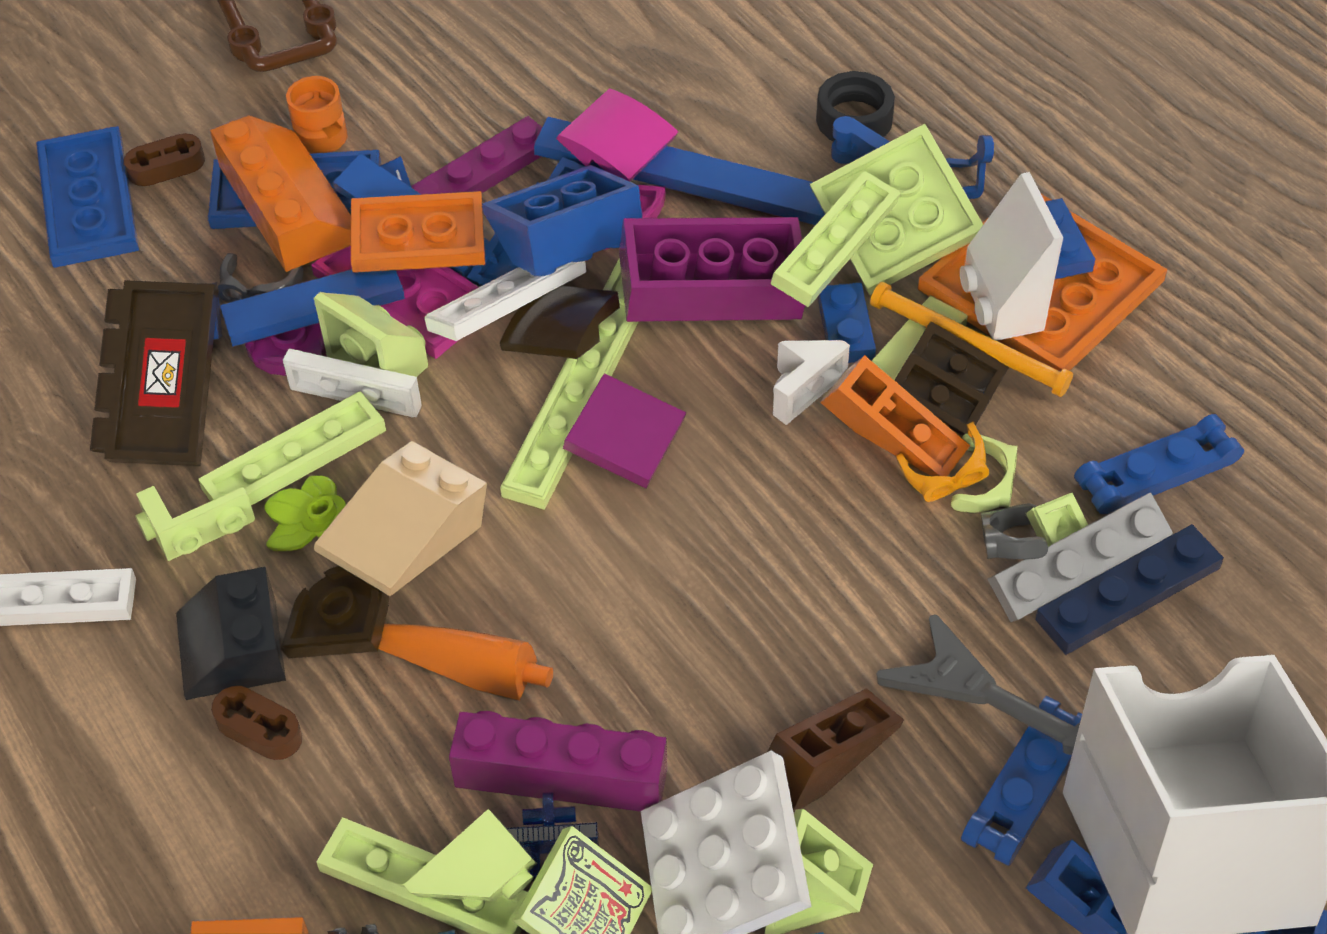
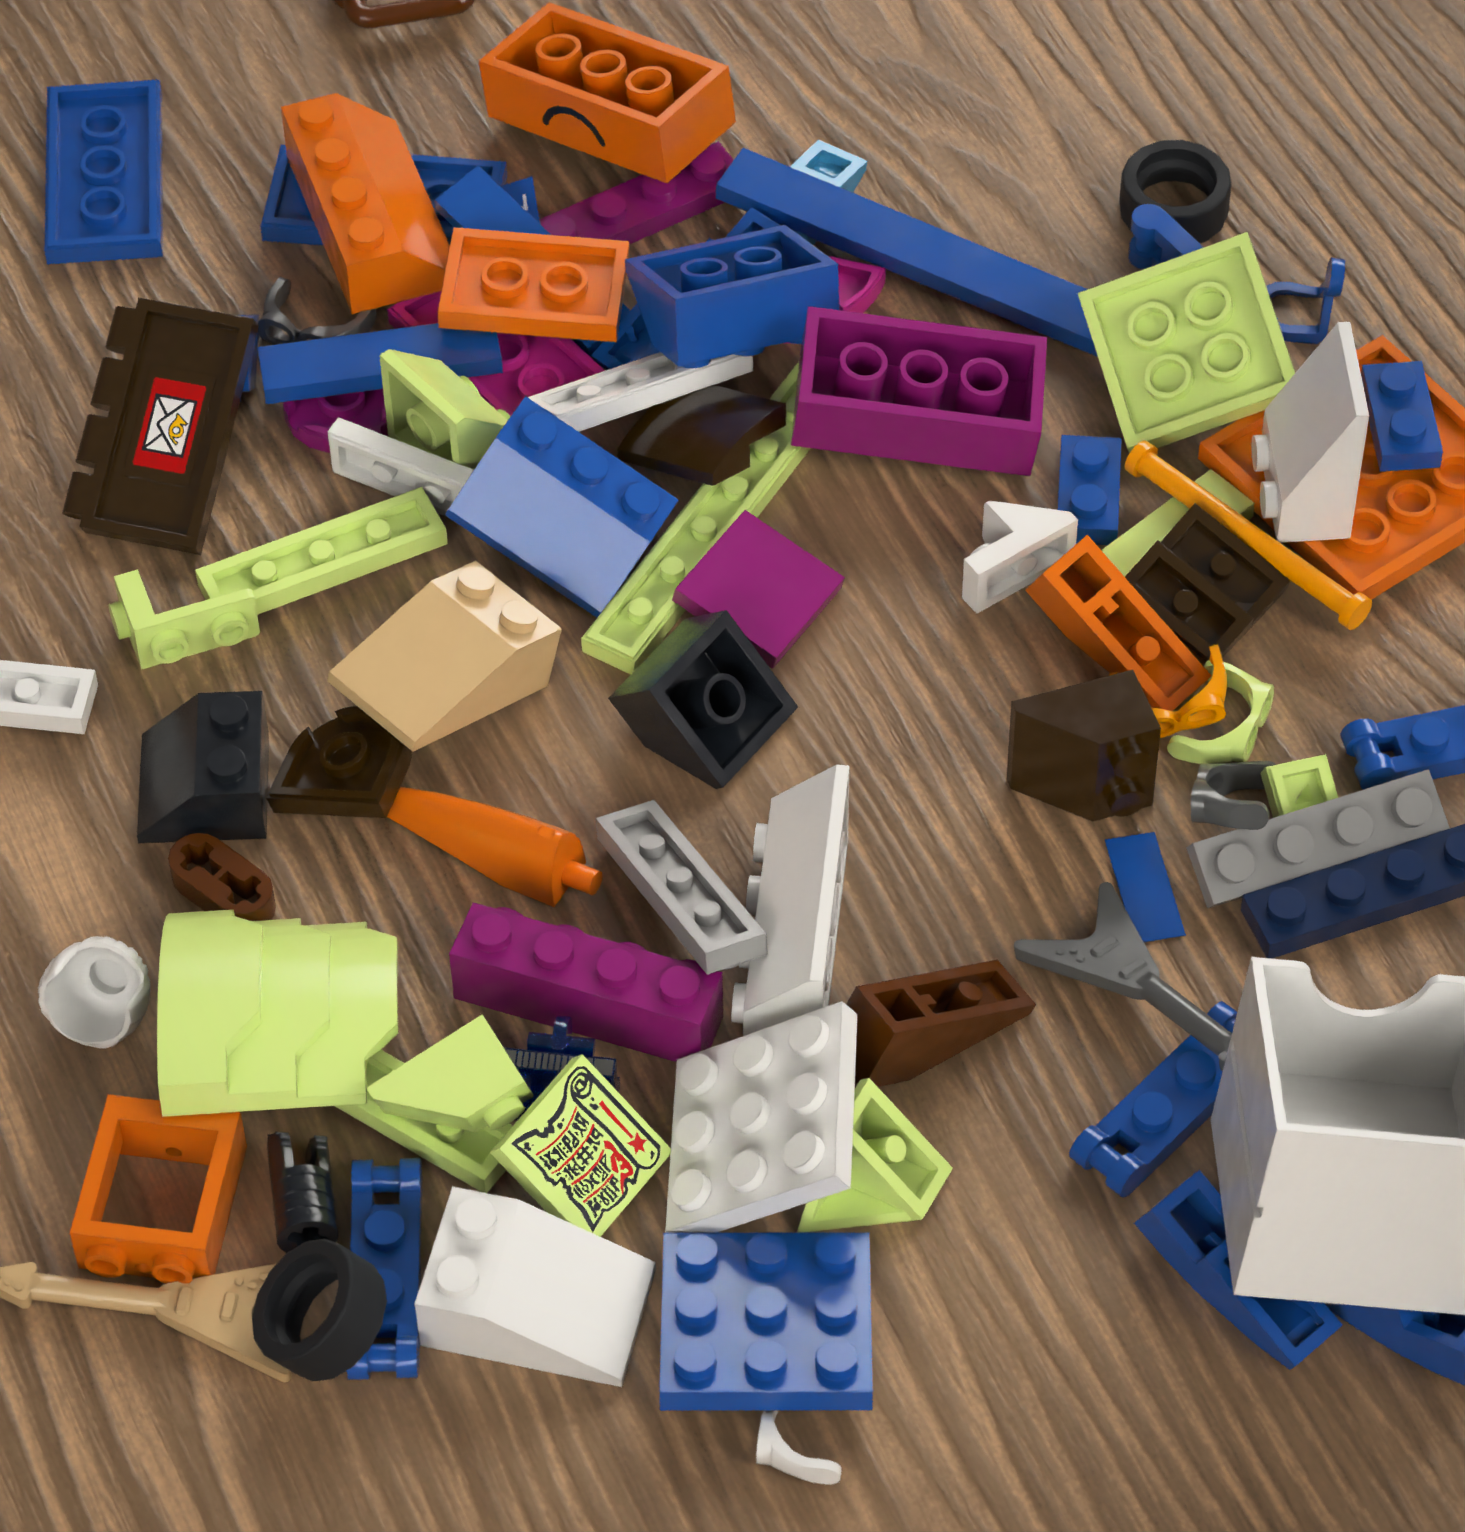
camera: 10 degrees right, 0 degrees up
(164, 159) = (214, 135): reddish brown beam -> none
(169, 833) = (95, 992): none -> white hair
(303, 513) = (321, 633): lime plate -> none
(313, 829) = (270, 1012): none -> yellowish green slope
(317, 114) = (430, 101): orange wheel -> none
(444, 90) = (608, 91): none -> orange brick
(469, 391) = (561, 507): none -> slope
(602, 520) = (704, 699): none -> black slope
(617, 135) = (831, 188): dark pink slope -> none
(619, 672) = (681, 887): none -> light grey plate
(709, 675) = (796, 901): none -> white slope
(835, 238) = (1089, 373): yellowish green plate -> none
(900, 514) = (1086, 747): none -> dark brown slope
(961, 612) = (1145, 886): none -> blue sticker

